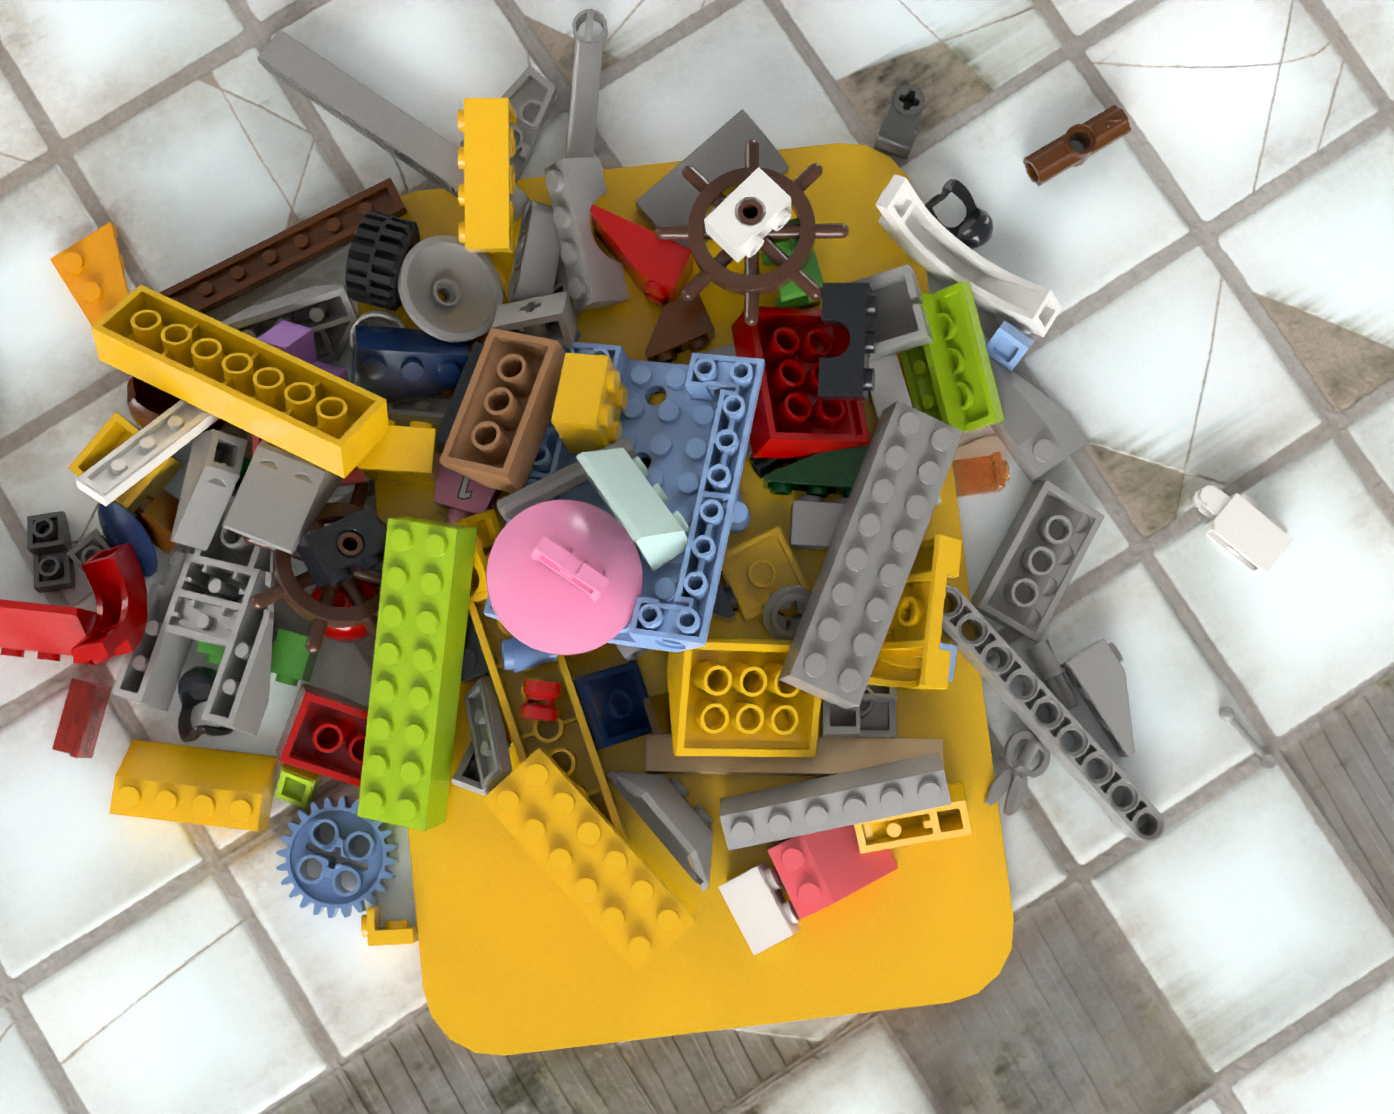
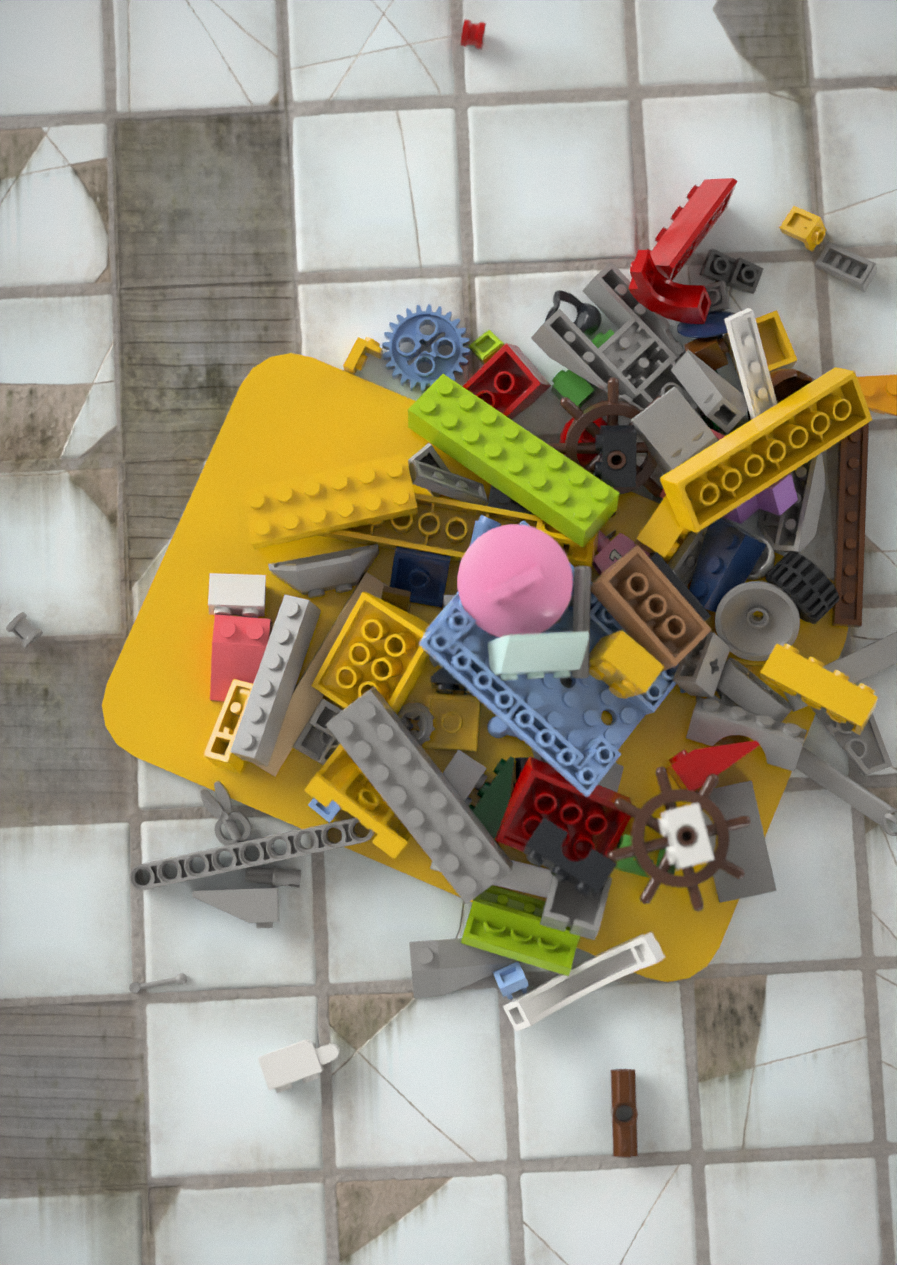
camera: 120 degrees right, 0 degrees up
(81, 718) = (609, 235): clear red panel -> none
(195, 785) = (523, 283): yellow slope -> none
(540, 691) = (452, 531): red wheel -> none
(680, 328) = (645, 759): reddish brown slope -> none
(900, 125) = (705, 995): dark grey piece -> none
(977, 224) = (604, 1000): black piece -> none
(980, 475) = (434, 908): clear orange bracket -> none
(1036, 560) = (355, 912): light grey slope -> none

